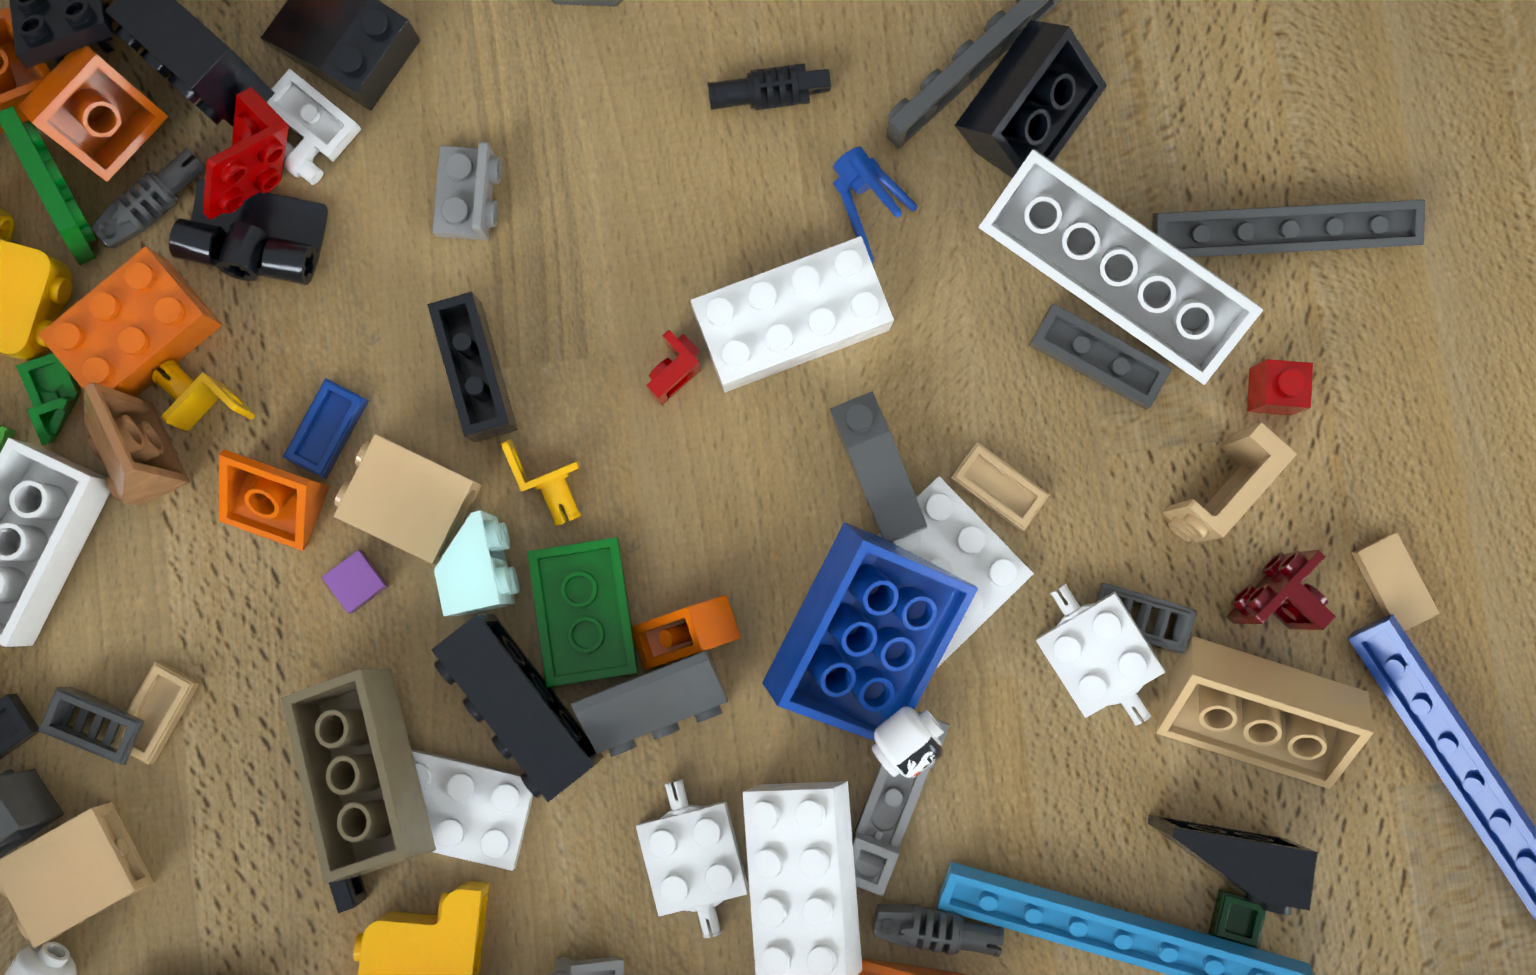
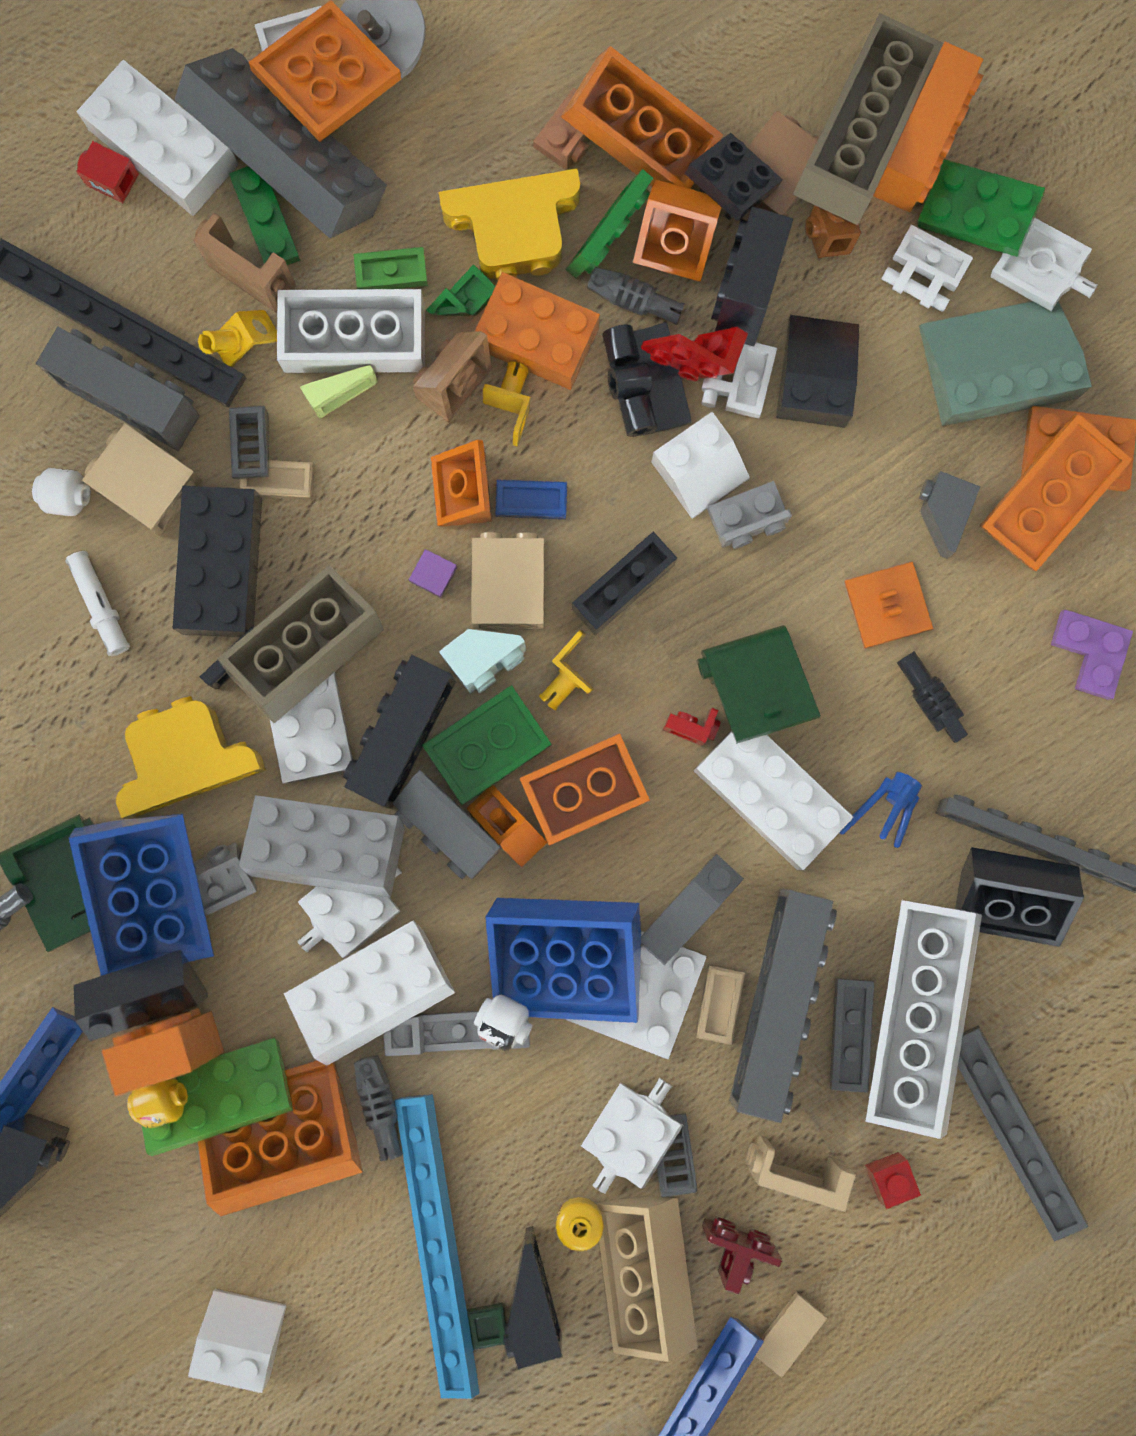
camera: 65 degrees right, 0 degrees up
(83, 590) = (334, 391): none -> yellowish green slope
(212, 828) = (217, 561): none -> black brick
(380, 217) = (701, 465): none -> white slope
(606, 859) = (322, 846): none -> light grey brick
(642, 88) = (888, 605): none -> orange piece
(661, 268) = (759, 683): none -> dark green door
(686, 523) = (584, 789): none -> orange brick
(1033, 416) = (781, 1005): none -> dark grey brick
(1158, 757) = (571, 1214): none -> yellow head

